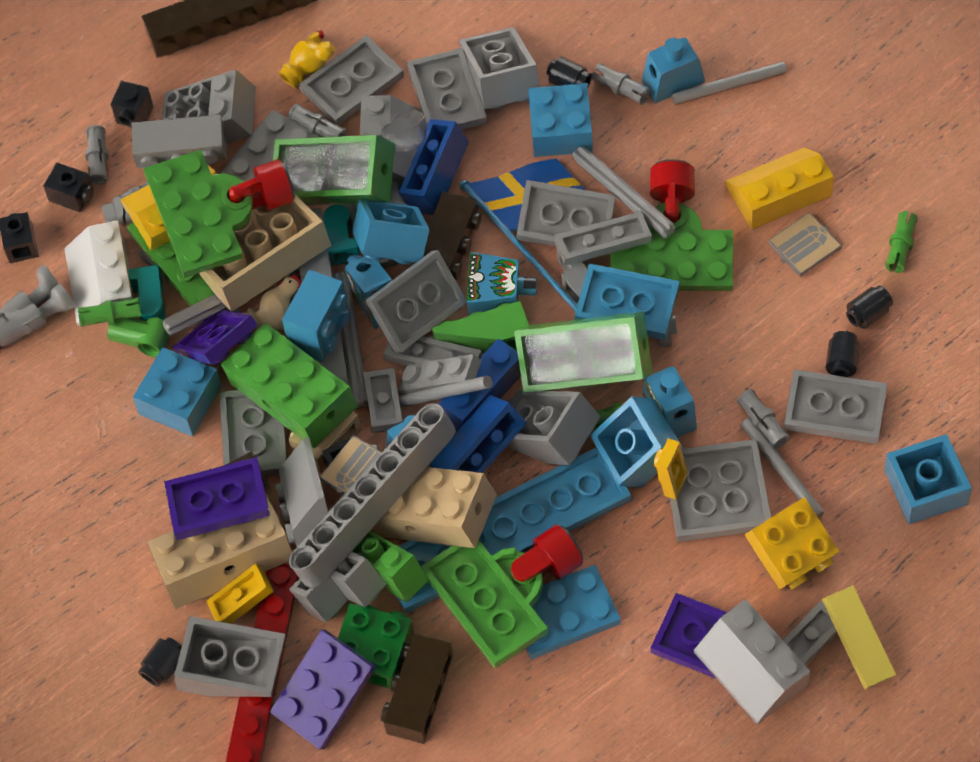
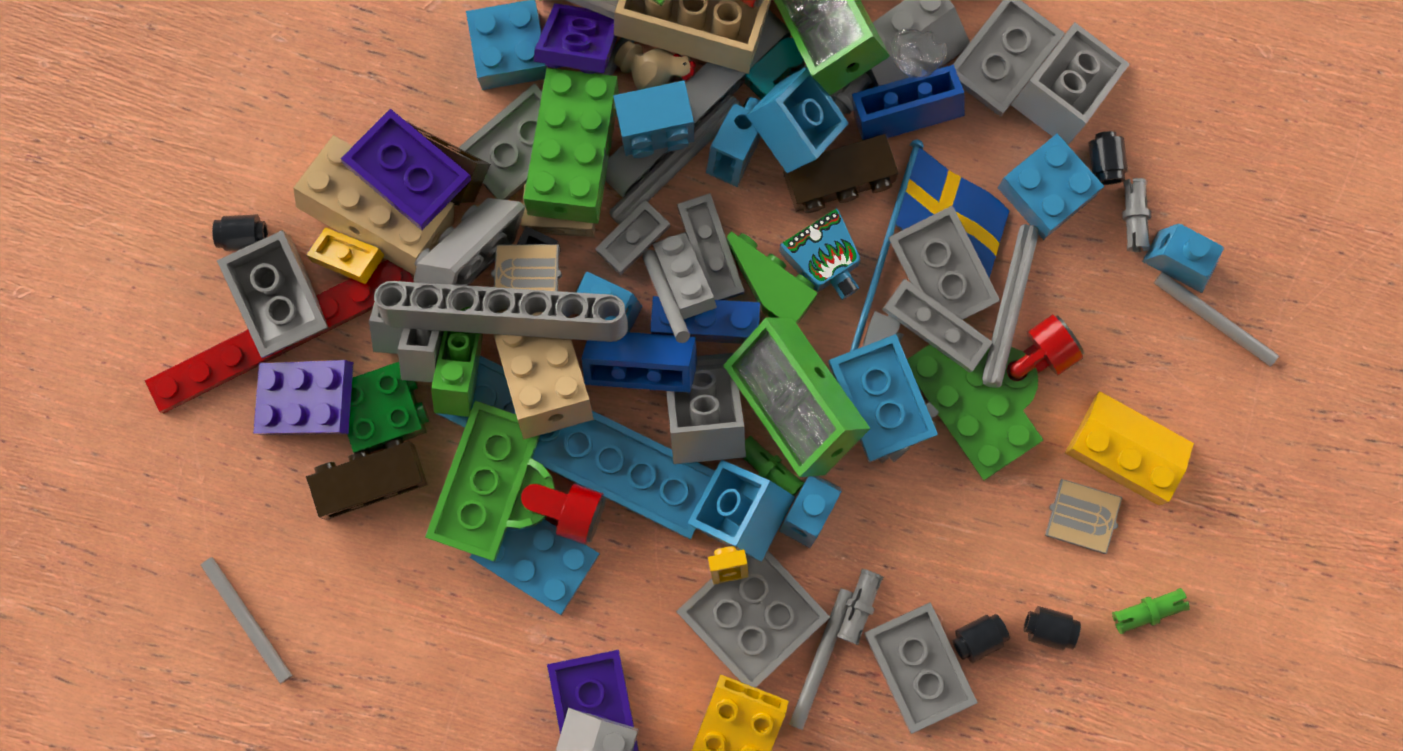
camera: 50 degrees right, 20 degrees up
(416, 301) = (744, 197): light grey plate -> none

